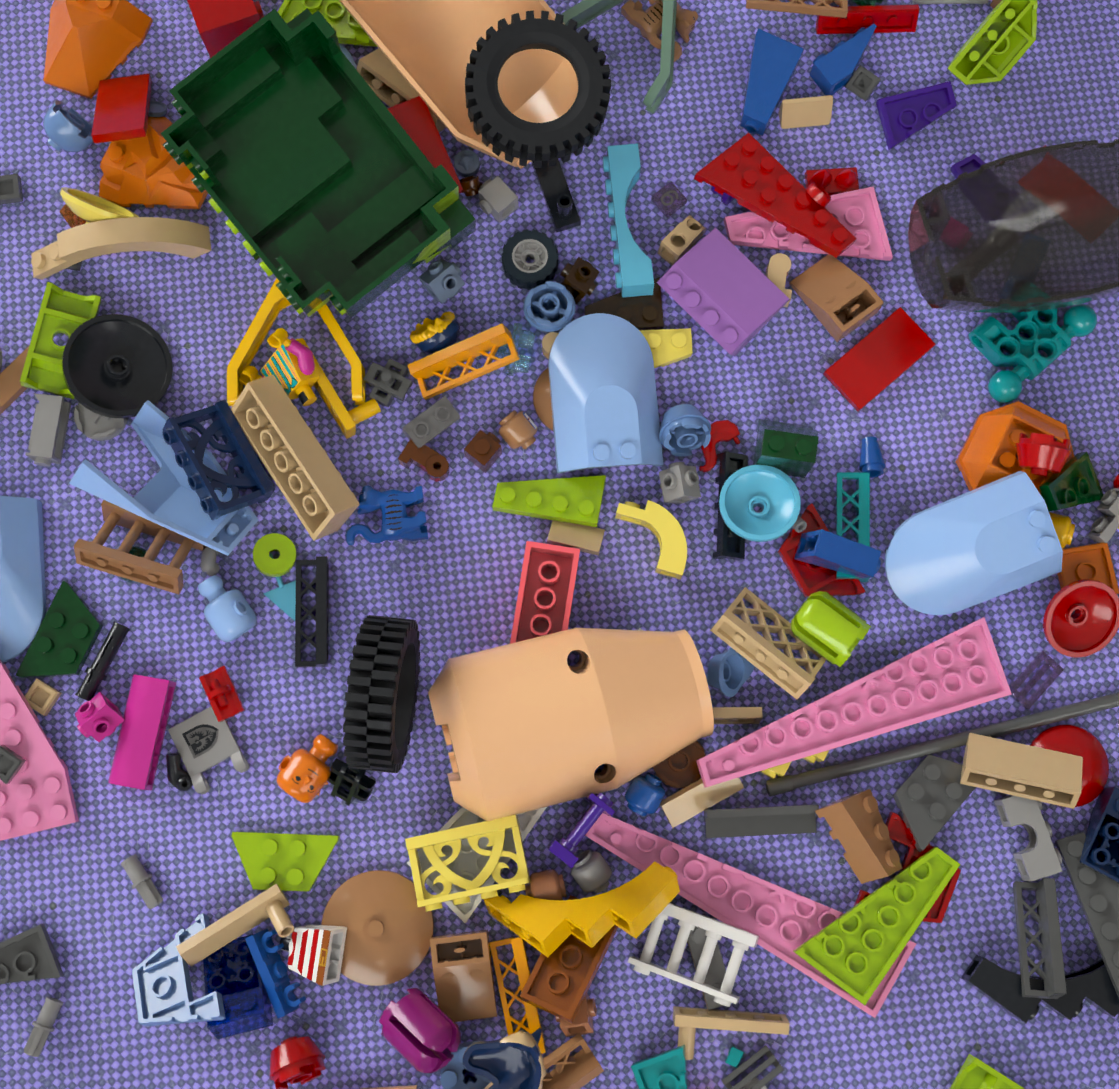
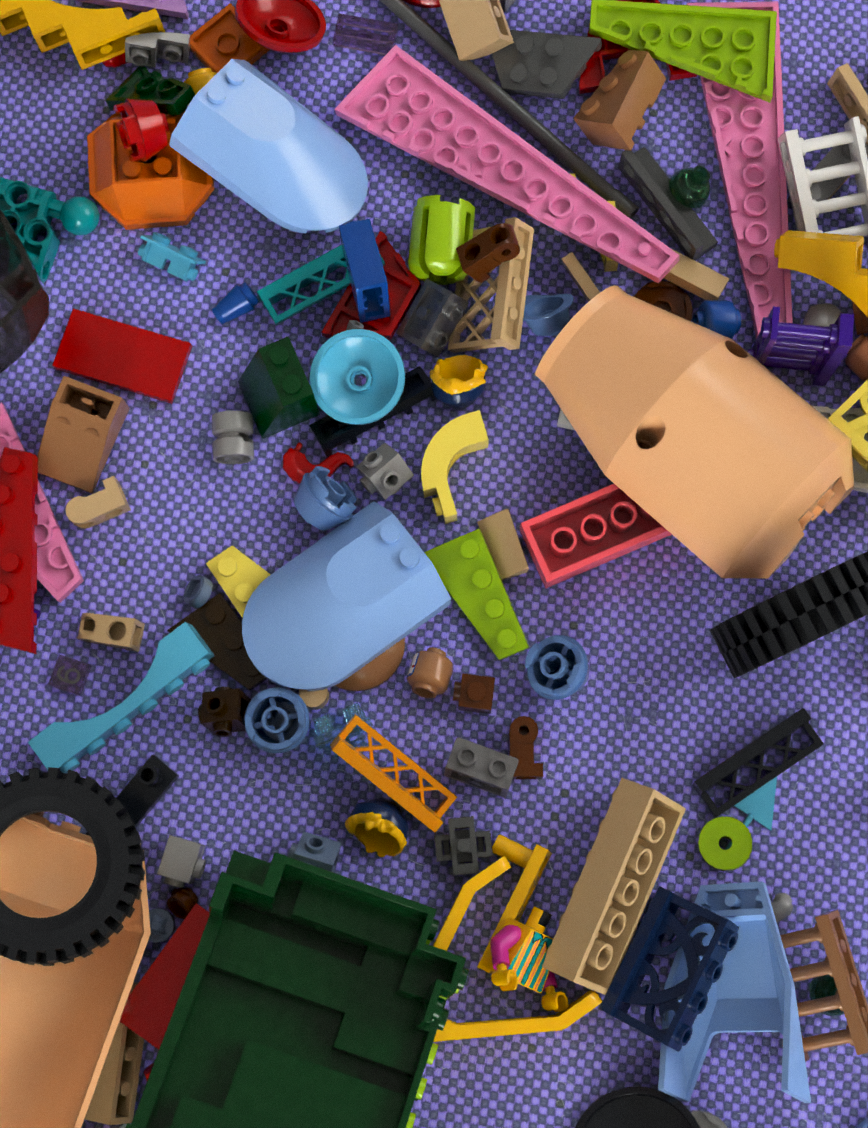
camera: 115 degrees left, 0 degrees up
(227, 611) = (816, 852): light blue piece -> none
(395, 522) = (604, 742): blue animal -> none
(464, 514) = (557, 667): none -> medium blue cone
(537, 247) = (212, 785): black wheel -> none
(673, 312) = (198, 591): none -> sand blue tile
(715, 576) = (458, 380): none -> yellow hair
(723, 291) = (147, 549): medium lavender slope -> none
(761, 844) = (690, 186): none -> clear green brick
(769, 396) = (233, 439): none -> light grey wheel
(774, 587) = (432, 317): none -> flat silver bracket
(794, 649) = (488, 251): none -> reddish brown leg
(946, 428) = (159, 250): none -> medium azure hinge

